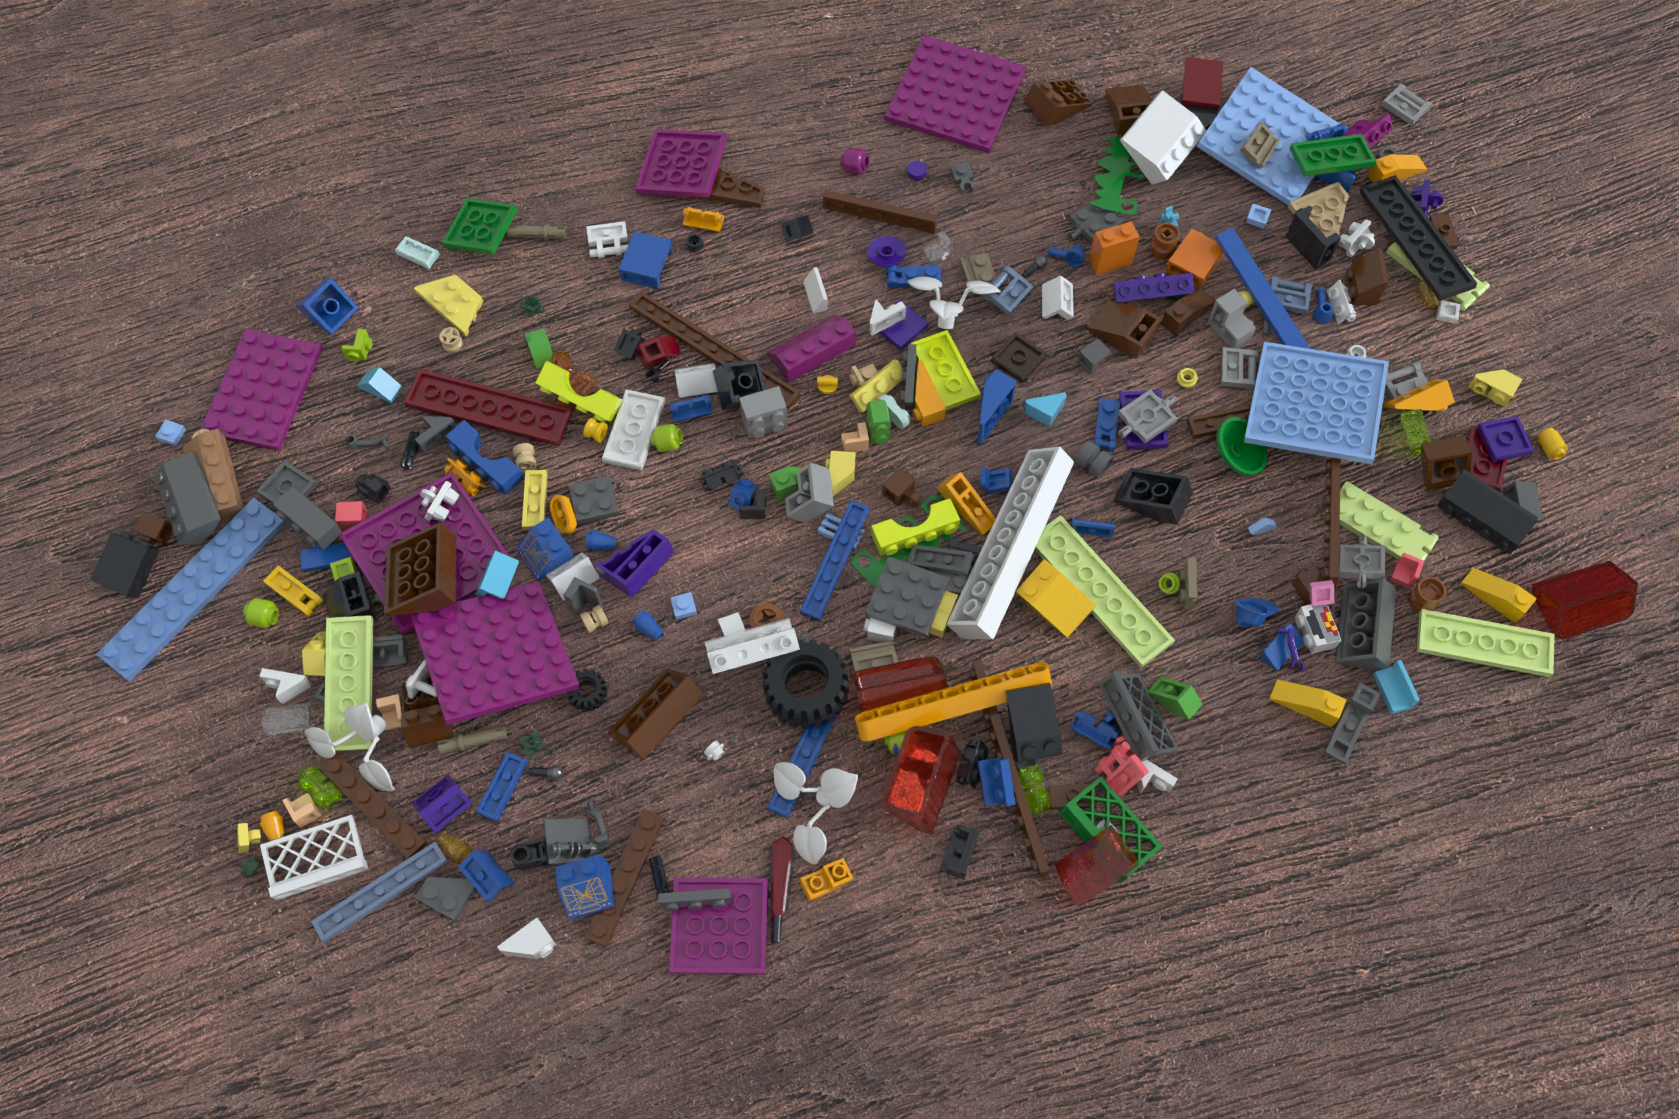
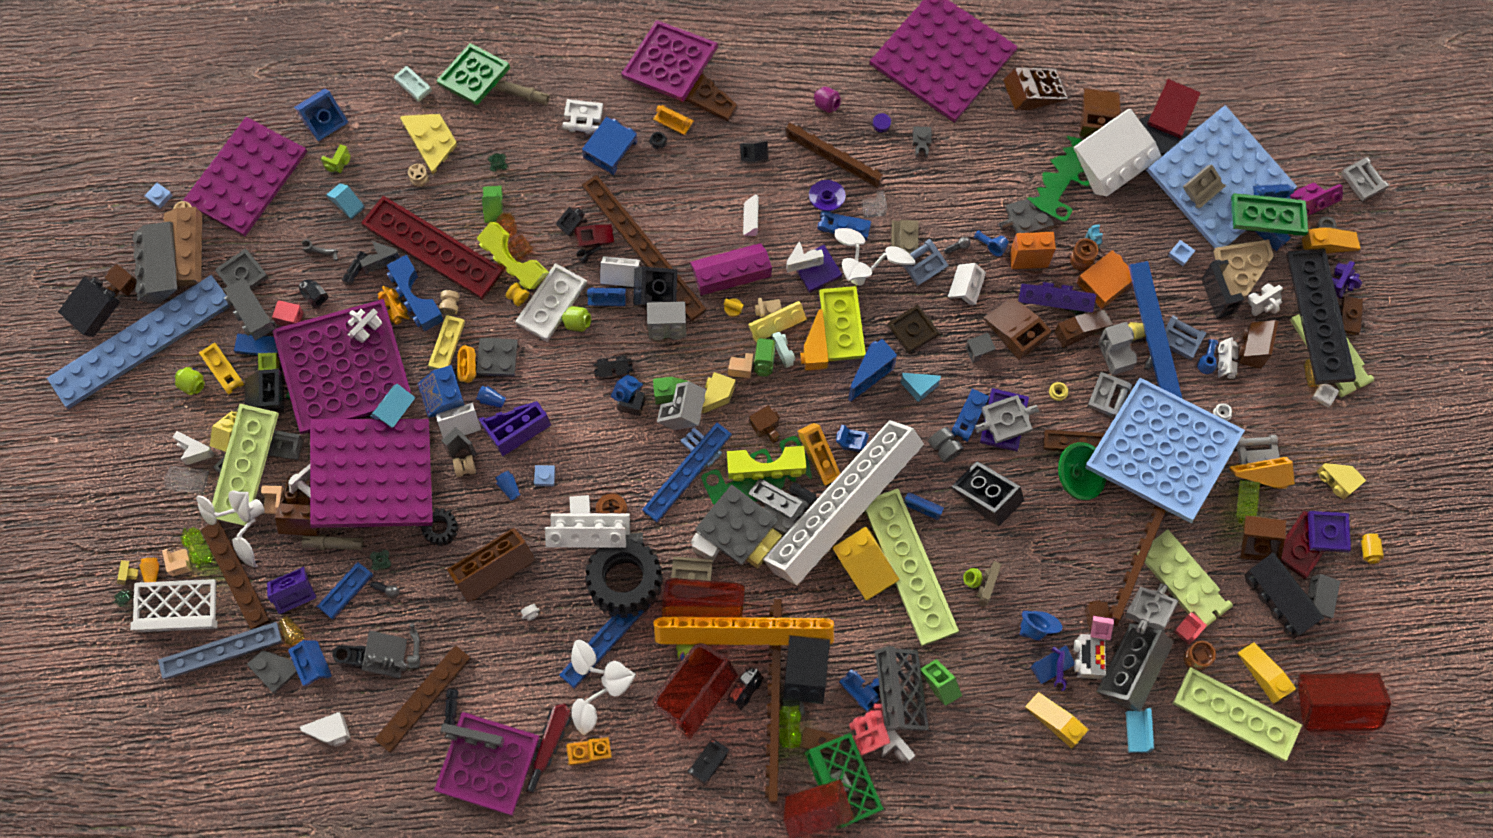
camera: 15 degrees right, 5 degrees up
(421, 572) = (329, 385): reddish brown slope -> none
(585, 886) = (386, 697): blue slope -> none
(908, 376) = (806, 321): dark grey plate -> none
(996, 782) = (758, 711): blue bracket -> none
(1262, 526) = (1075, 549): light blue tile -> none
(1351, 723) = (1088, 751): dark grey slope -> none

